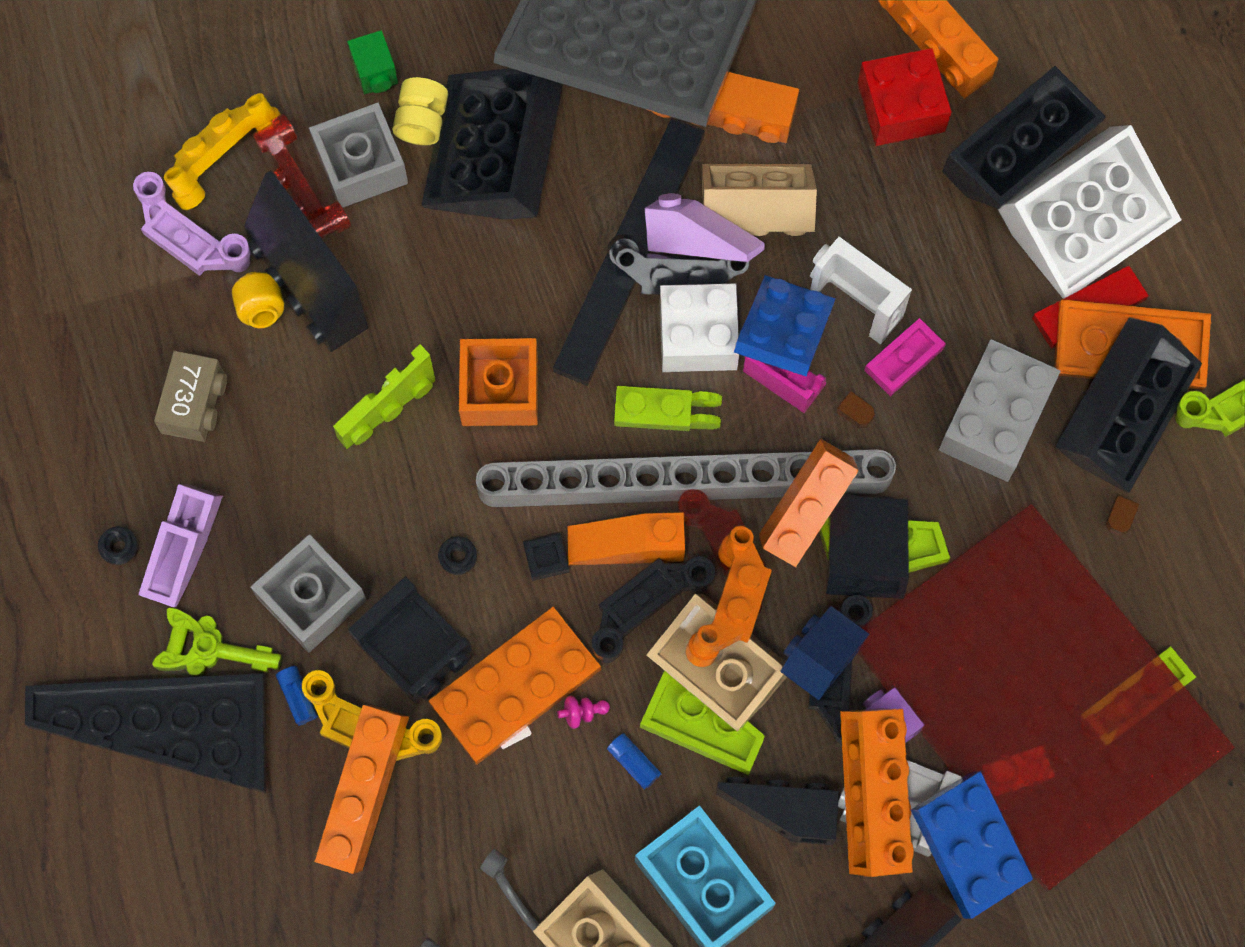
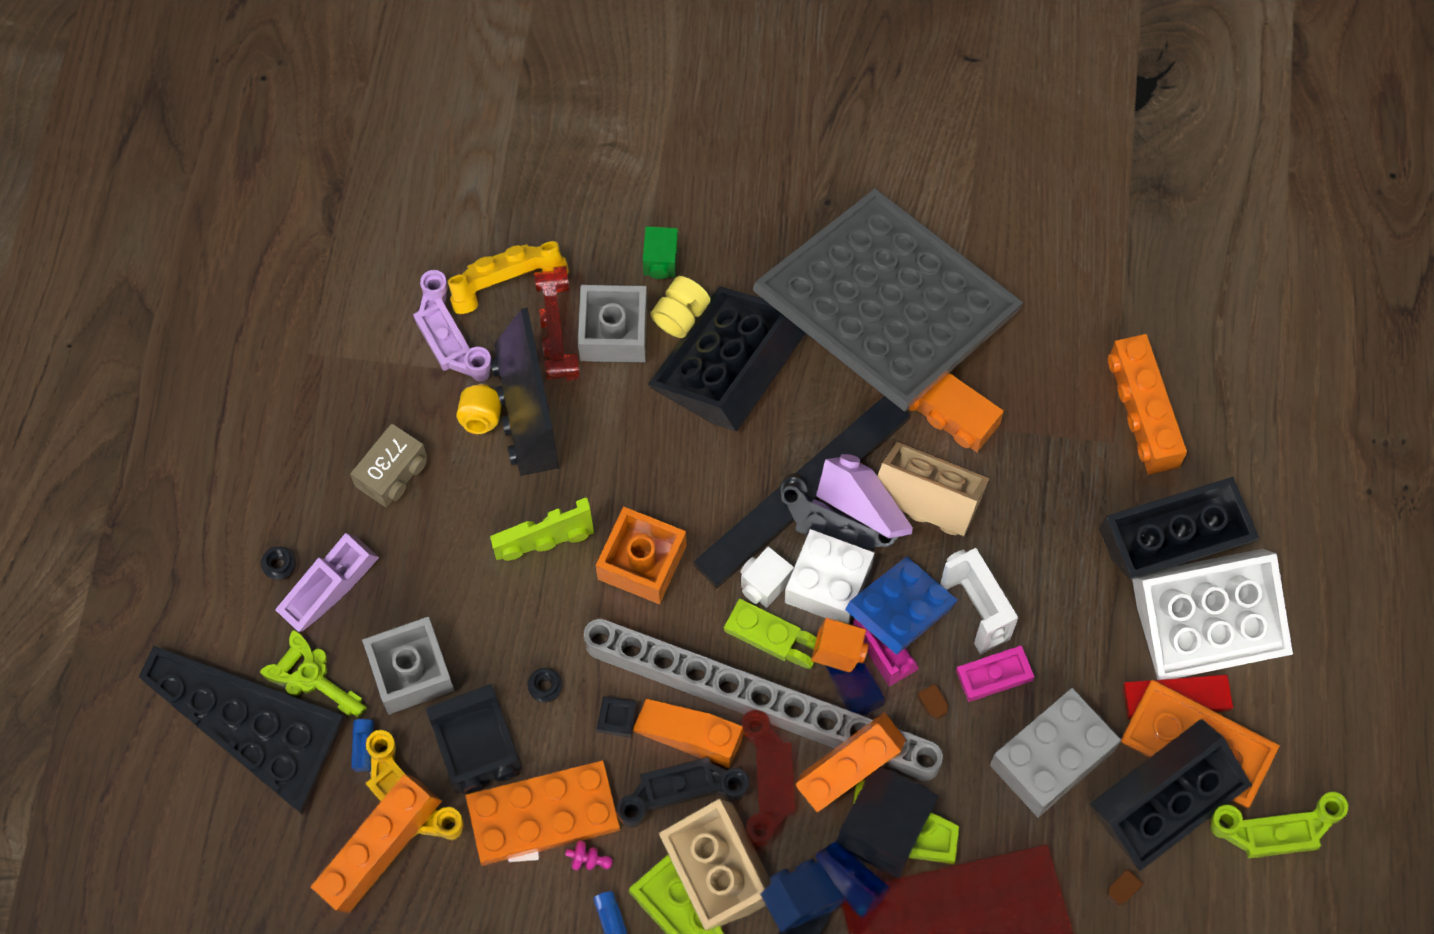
camera: 25 degrees right, 5 degrees down
(634, 353) = (765, 577): none -> white brick
(738, 601) = (752, 820): orange plate -> none
(742, 391) = (839, 645): none -> orange brick
(768, 421) = (857, 689): none -> clear blue slope
(865, 617) = (853, 879): none -> clear blue slope
(904, 97) = (1093, 452): red brick -> none

